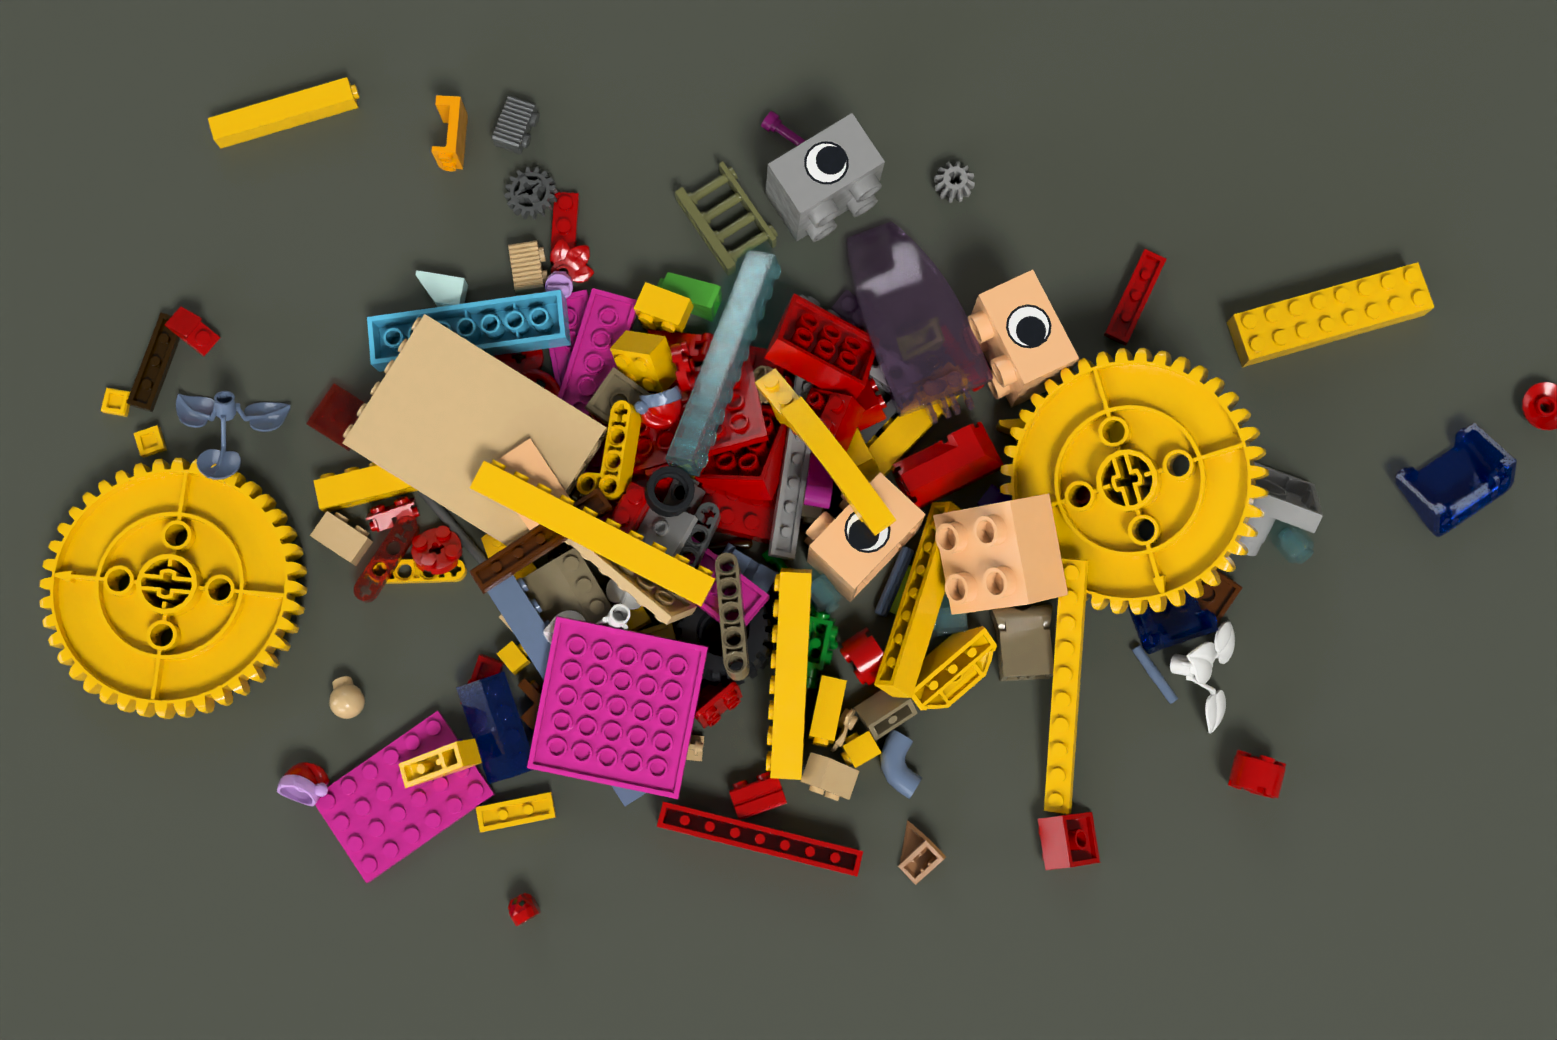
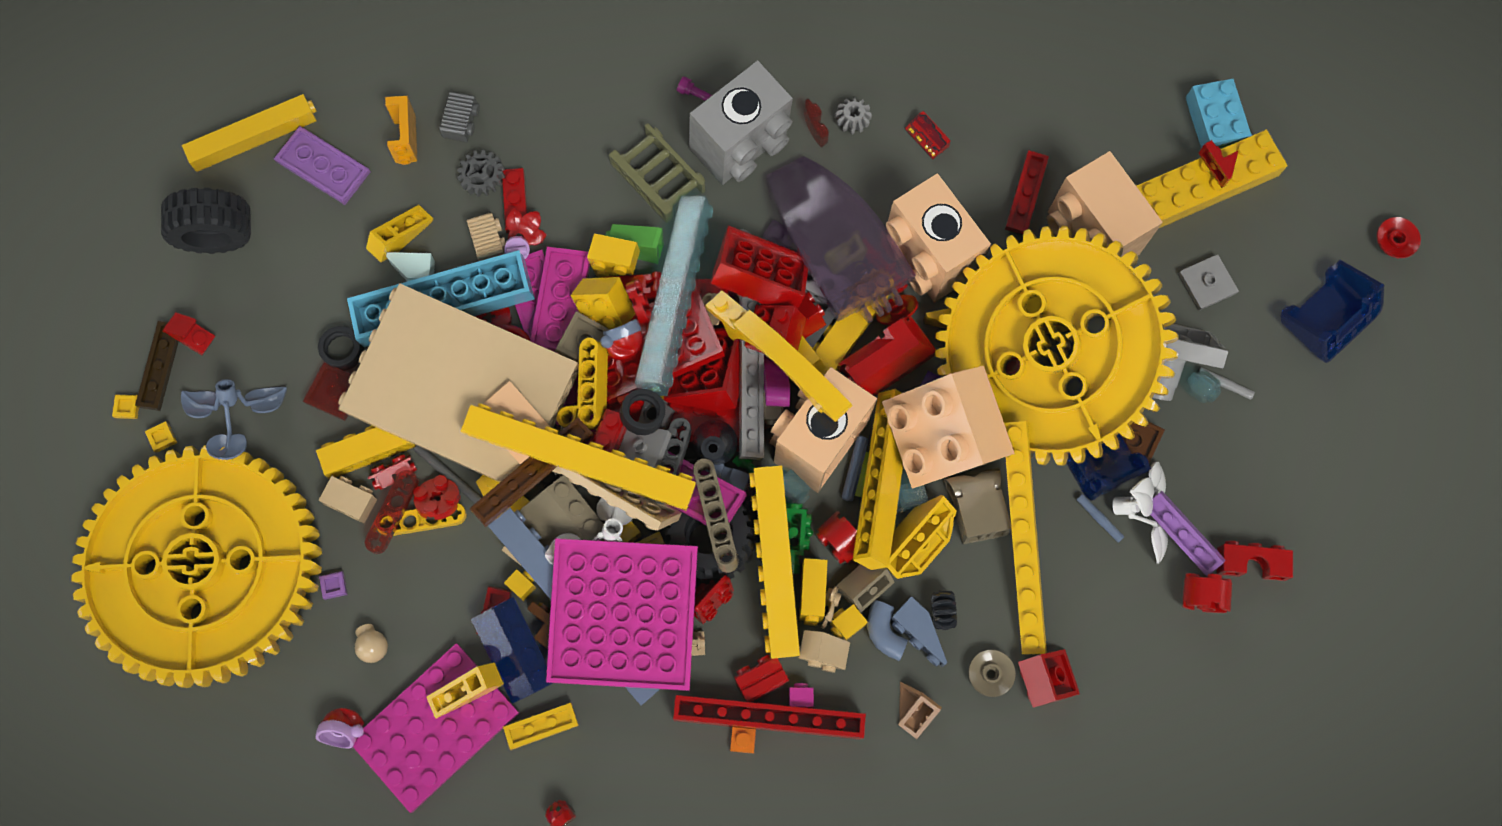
camera: 10 degrees left, 5 degrees down
(224, 210) = (205, 220): none -> black tyre
(314, 628) = (333, 585): none -> medium lavender tile
(345, 353) = (333, 333): none -> black tyre
(358, 160) = (322, 165): none -> medium lavender tile
(431, 248) = (397, 232): none -> yellow slope
(729, 858) = (743, 740): none -> orange plate
(744, 533) = (716, 433): none -> black cone
(797, 821) = (801, 696): none -> dark pink plate
(909, 178) = (813, 119): none -> clear red slope
(936, 764) = (918, 626): none -> sand blue slope
(966, 751) = (944, 610): none -> black gear
(978, 414) = (908, 308): none -> red dish
(1020, 822) = (1002, 668): none -> dark tan dish
(1034, 215) = (928, 135): none -> slope
(1215, 330) = (1106, 203): none -> light nougat brick
(1244, 706) = (1185, 534): none -> medium lavender fence
(1322, 427) = (1208, 282): none -> light grey plate
(1327, 548) = (1230, 385): none -> light grey piece
(1339, 750) = (1274, 561): none -> red arch
(1357, 301) = (1220, 166): none -> red slope
(1366, 237) = (1217, 113): none -> medium azure brick

